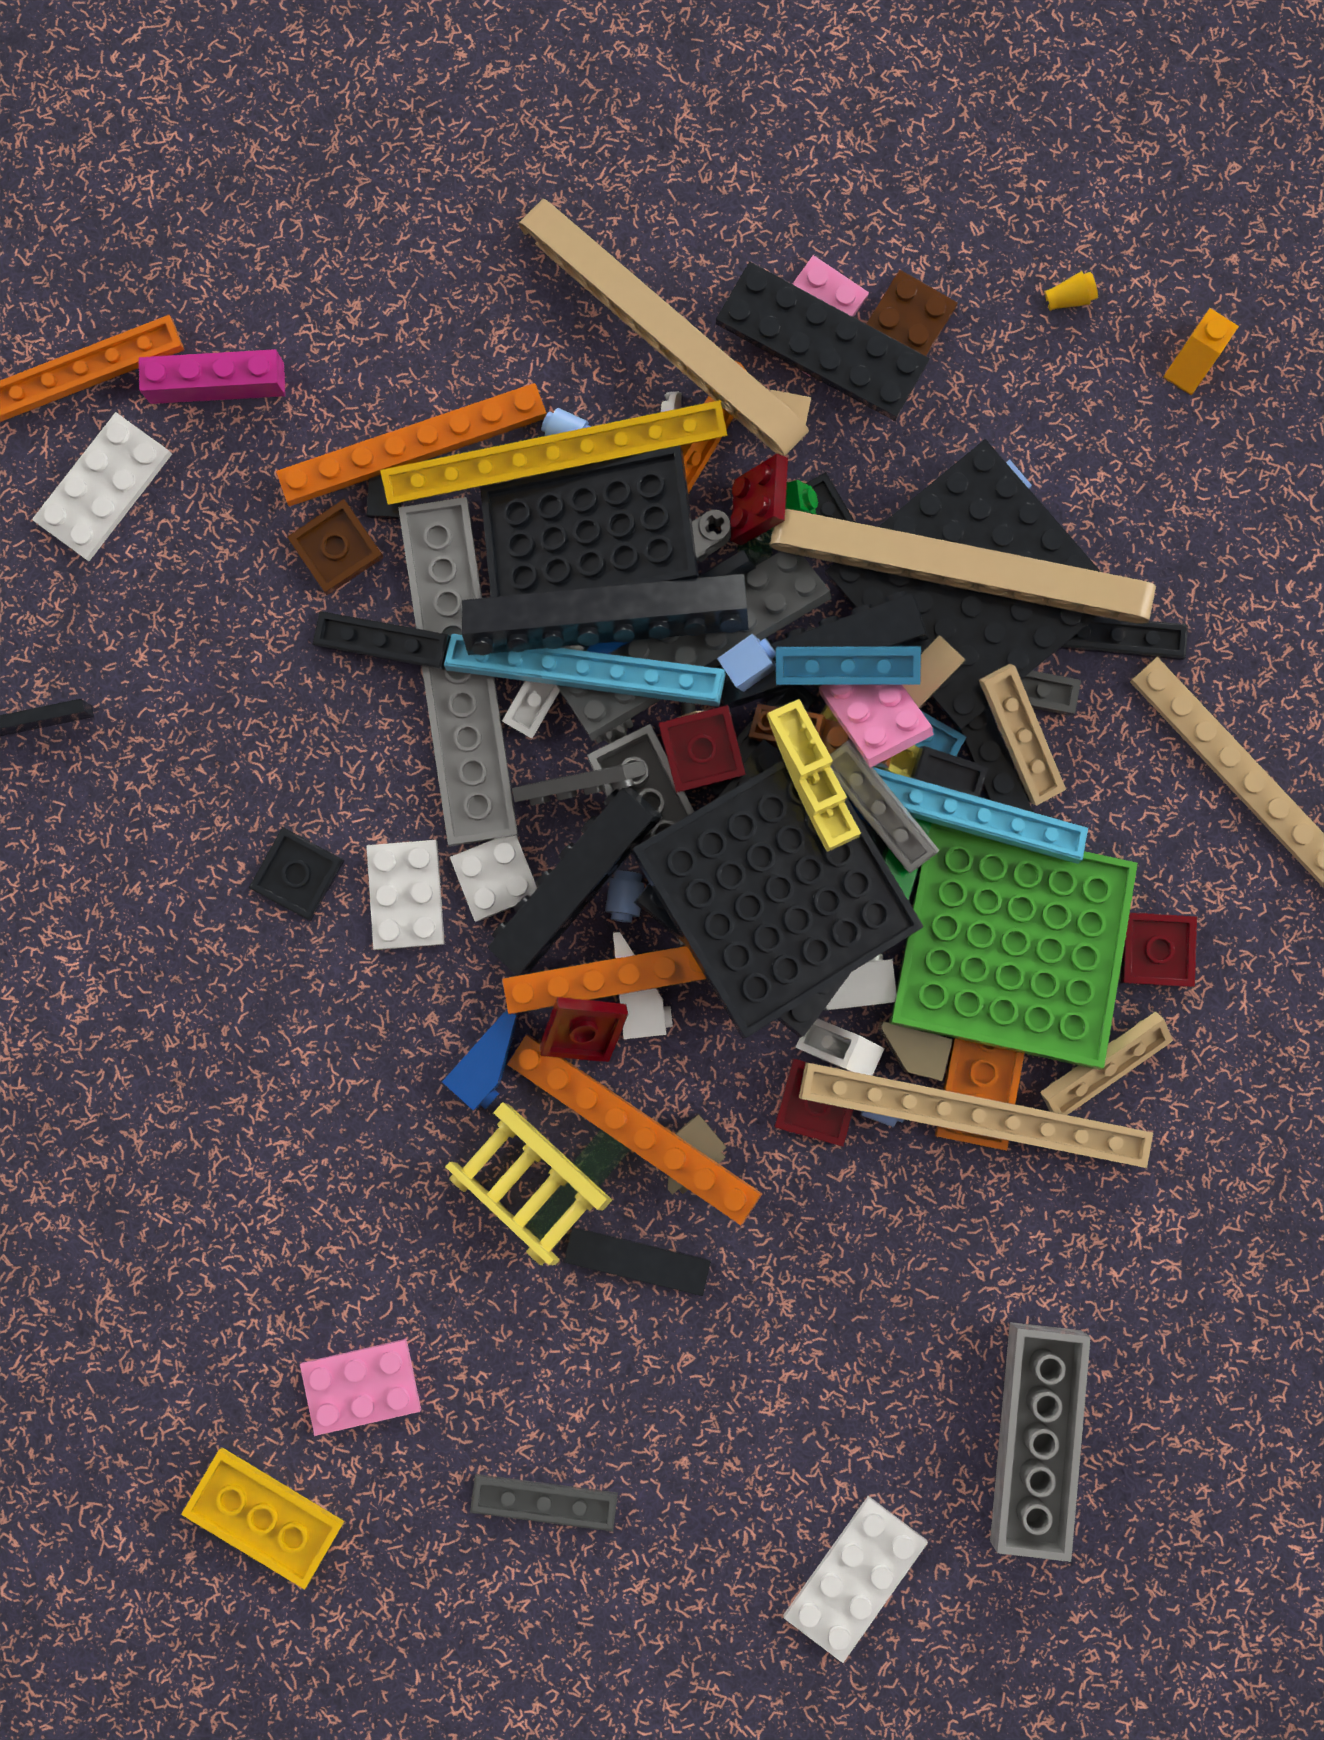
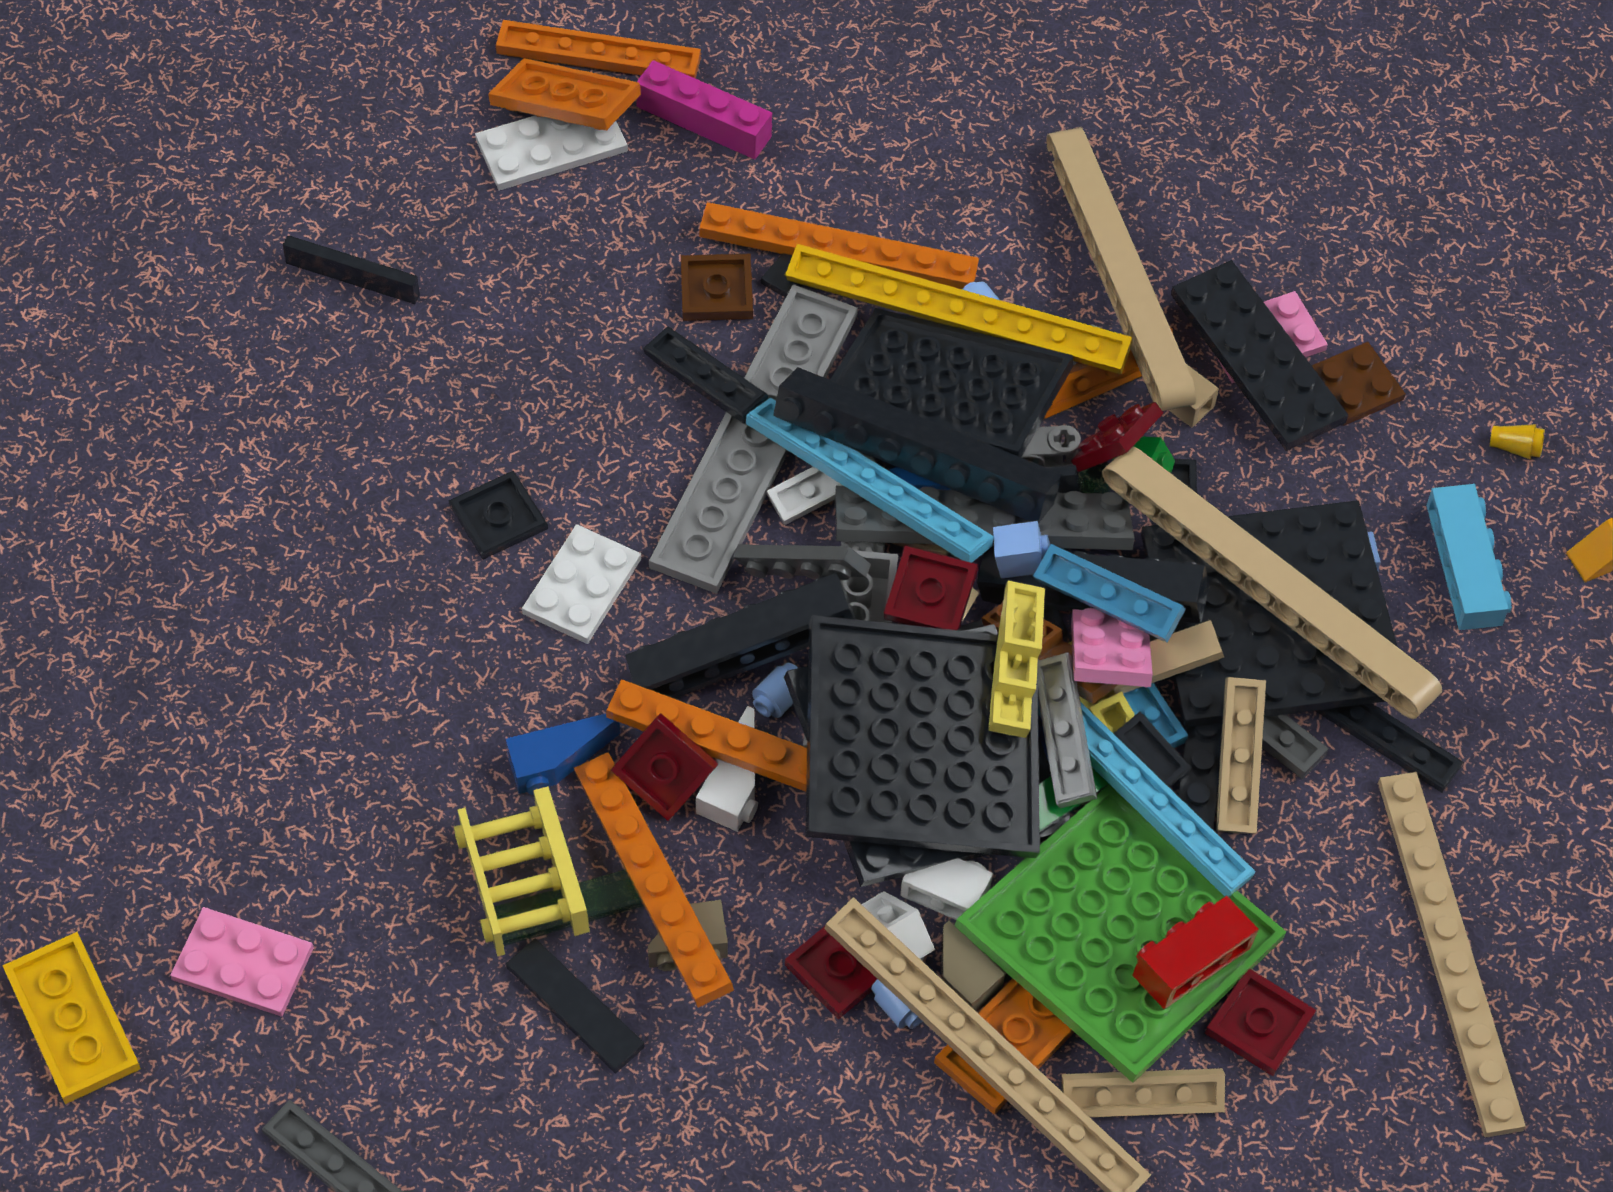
camera: 25 degrees right, 25 degrees down
(84, 437) = (564, 94): none -> orange plate
(493, 876) = (668, 608): white plate -> none
(1088, 935) = (1194, 951): none -> red brick
(1092, 432) = (1468, 557): none -> medium azure brick

